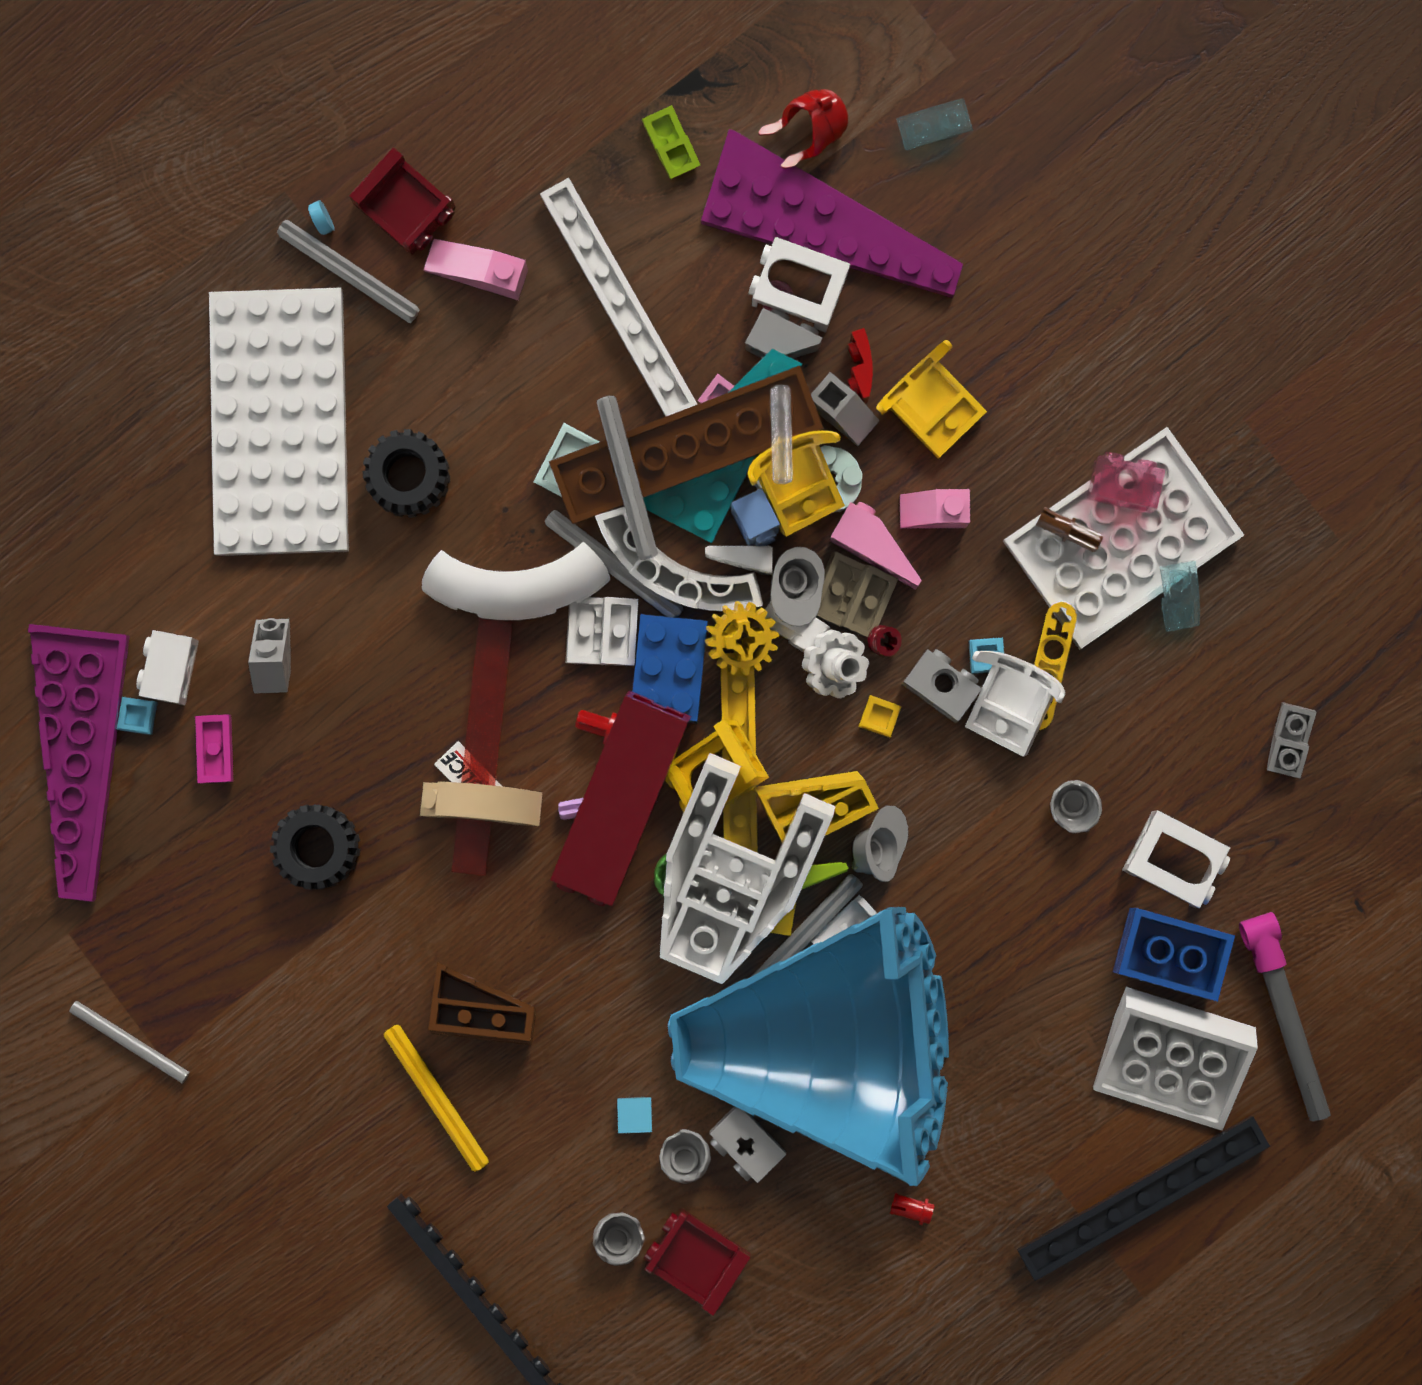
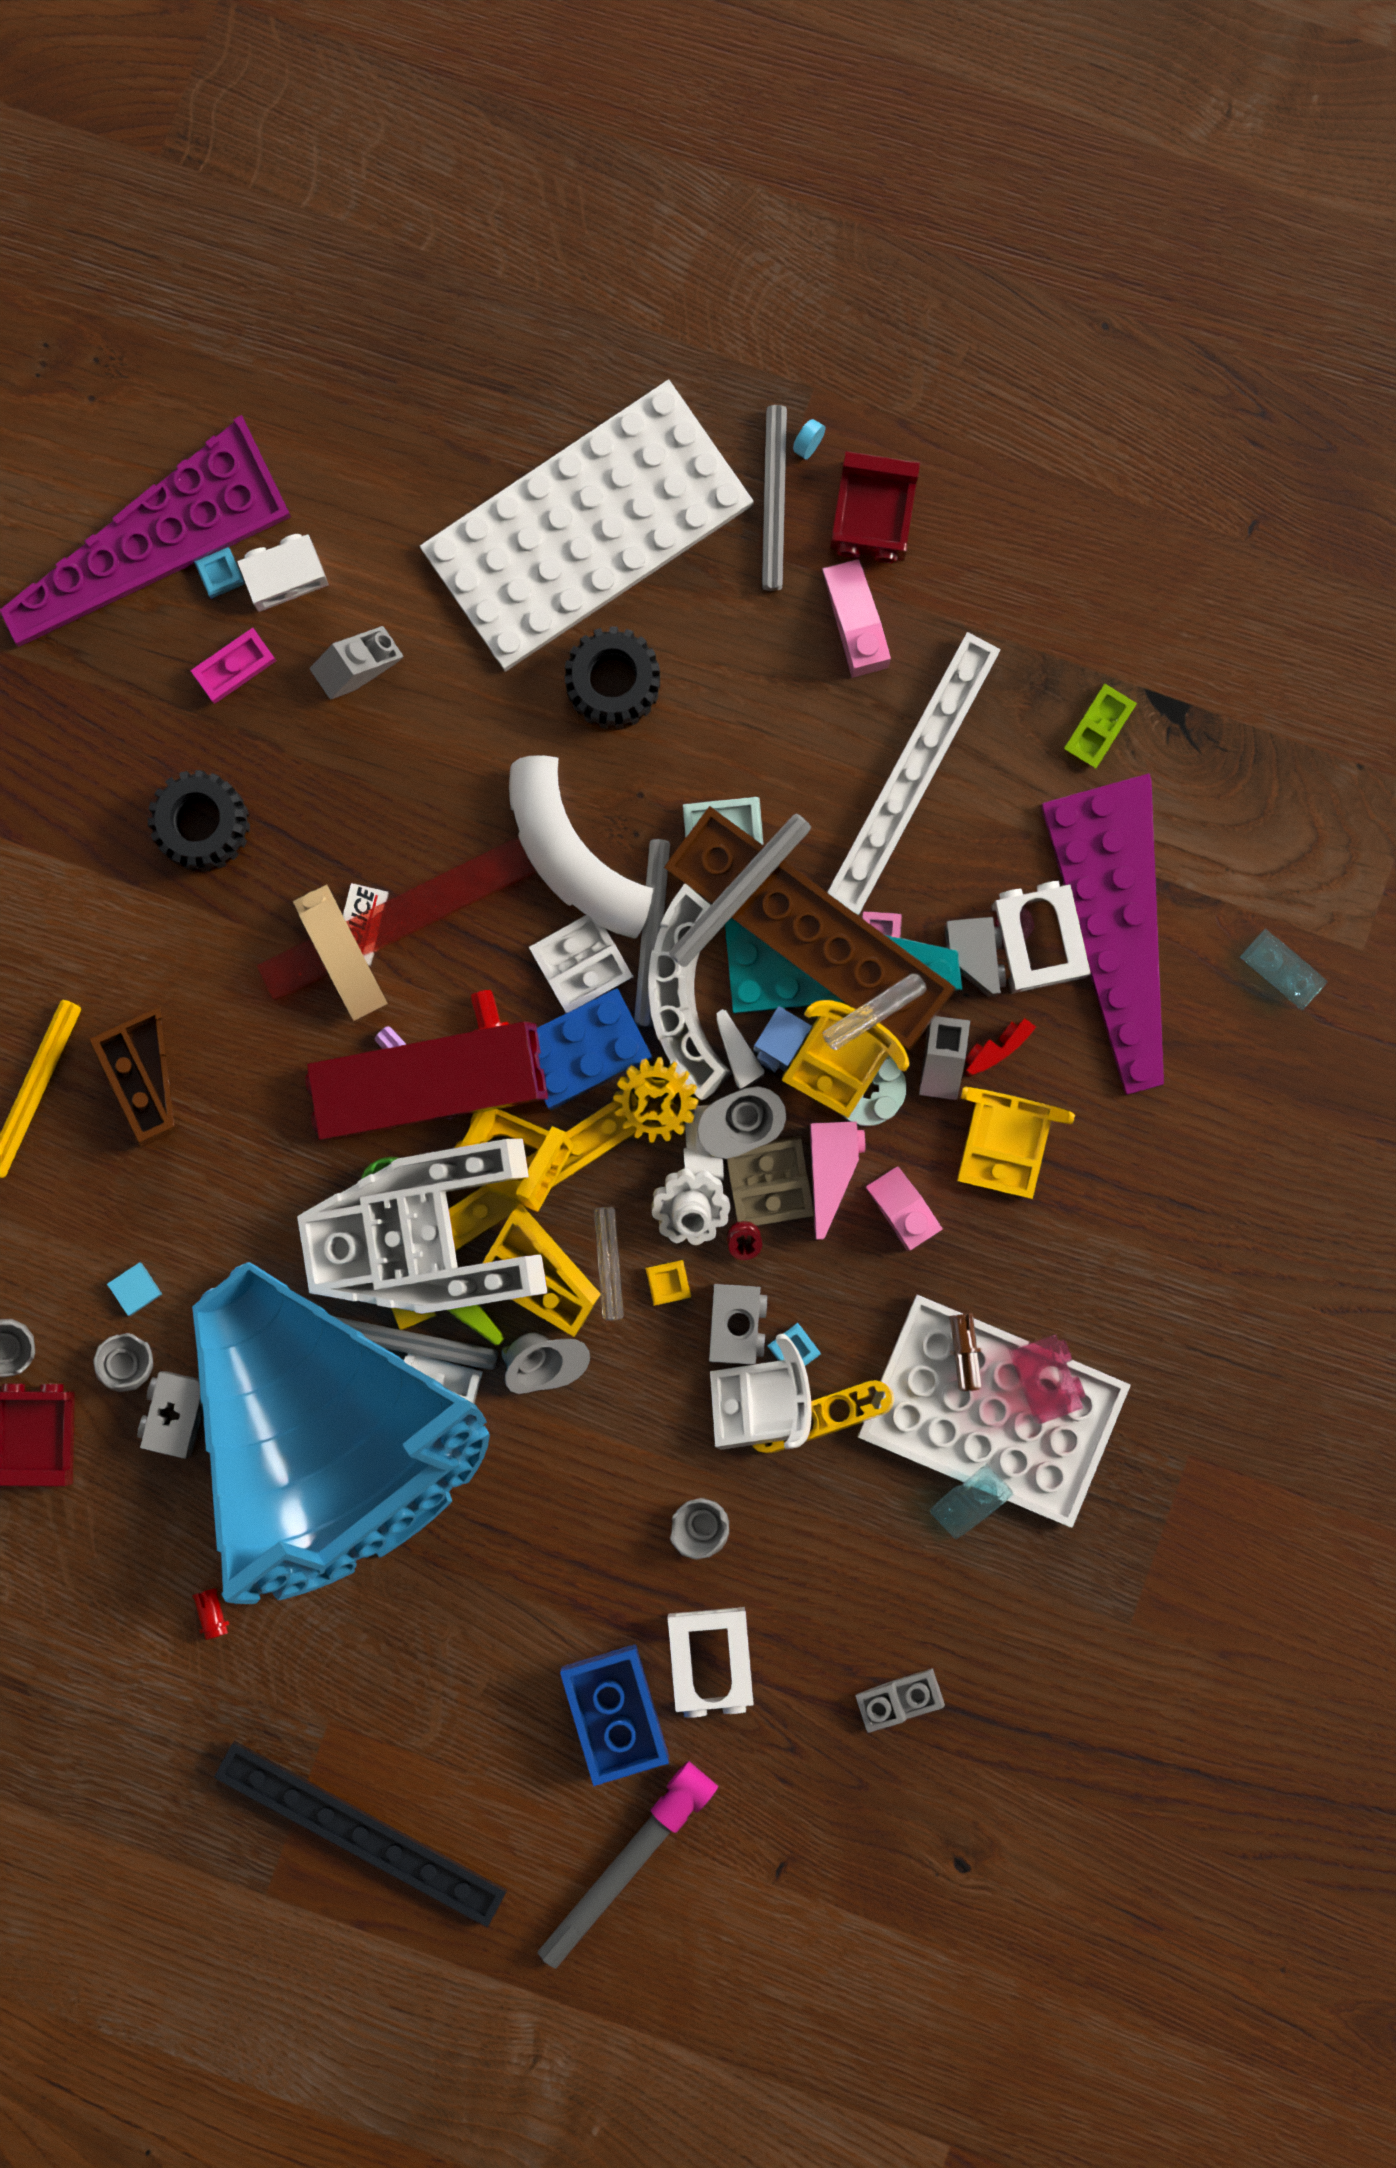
camera: 55 degrees right, 0 degrees up
(828, 122) = (1218, 862): red hair -> none
(838, 751) = (608, 1263): none -> clear axle
(1175, 1058) = (515, 1780): white slope -> none

